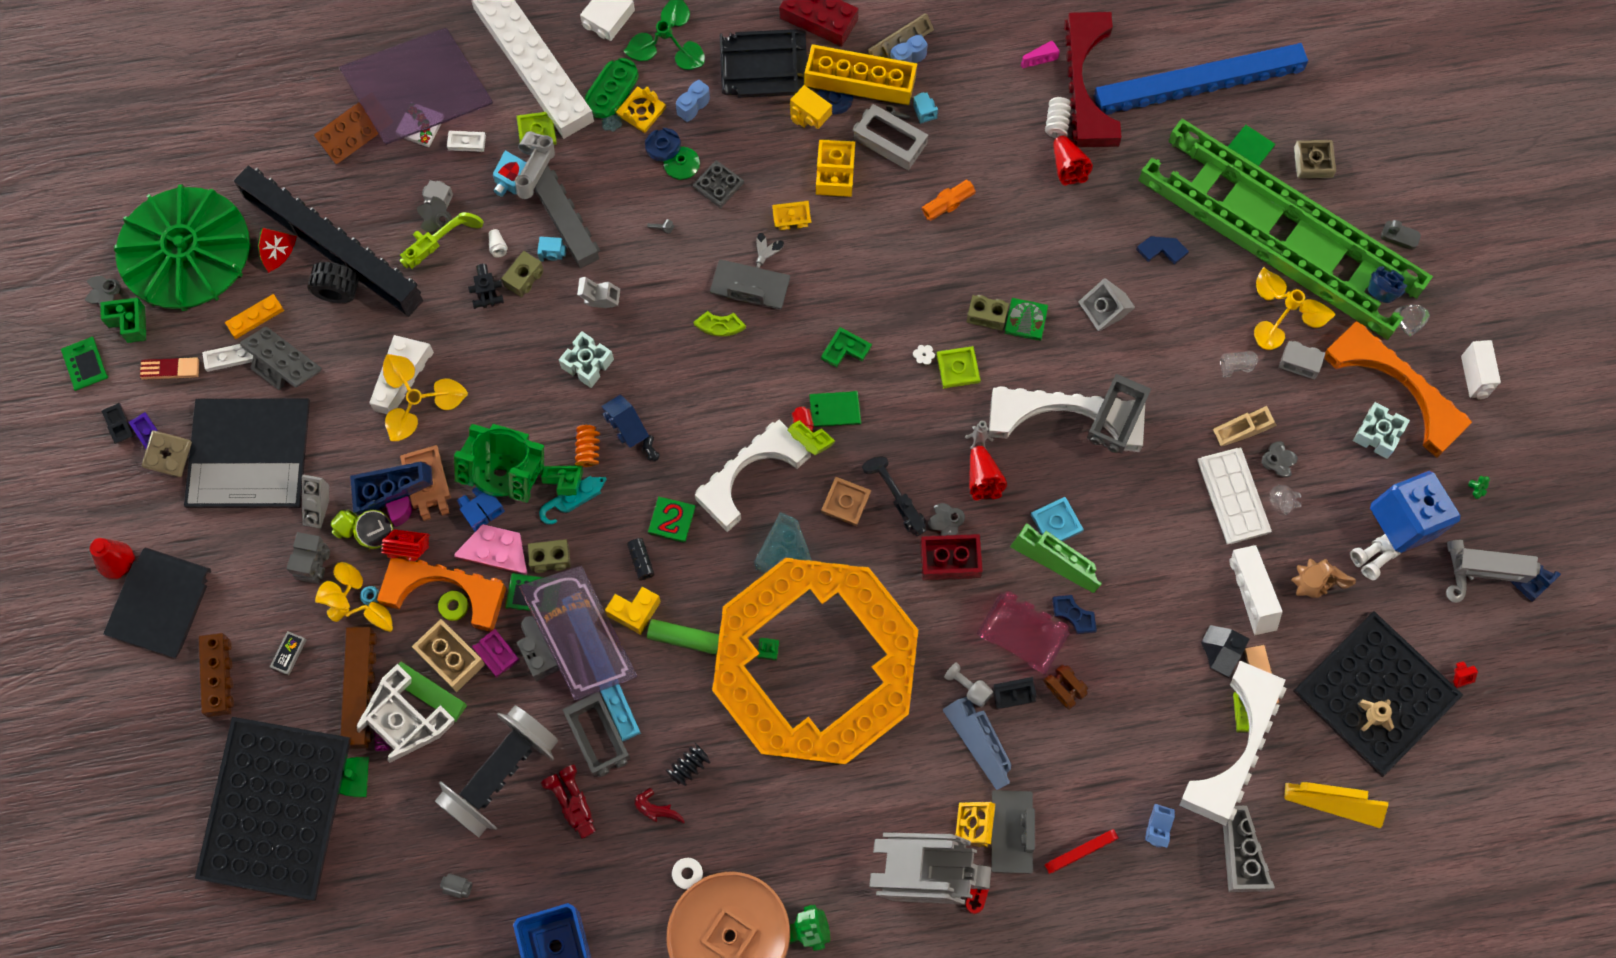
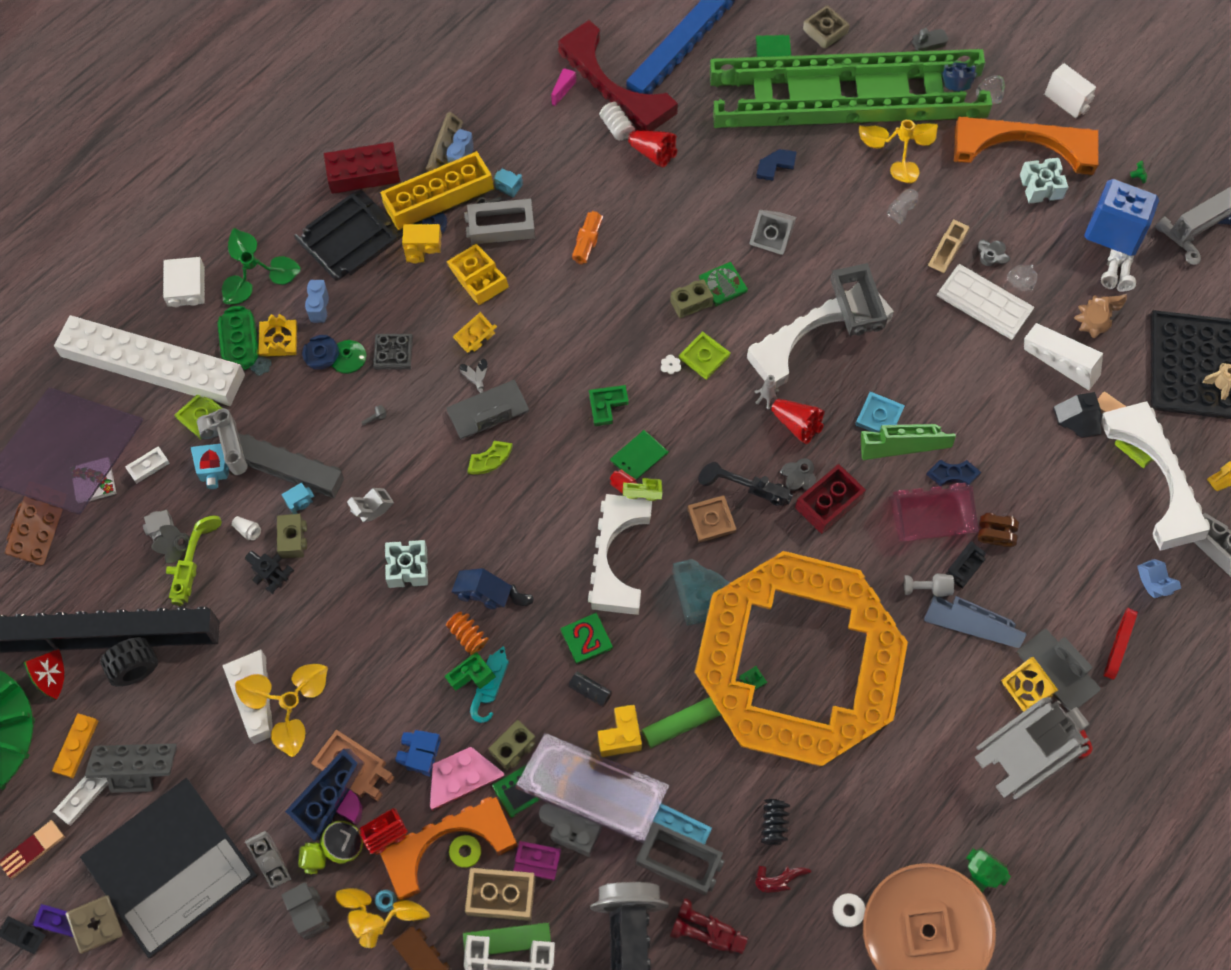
camera: 40 degrees left, 5 degrees down
(482, 455) = (403, 687): green piece -> none
(1302, 360) = (944, 171): light grey brick -> none

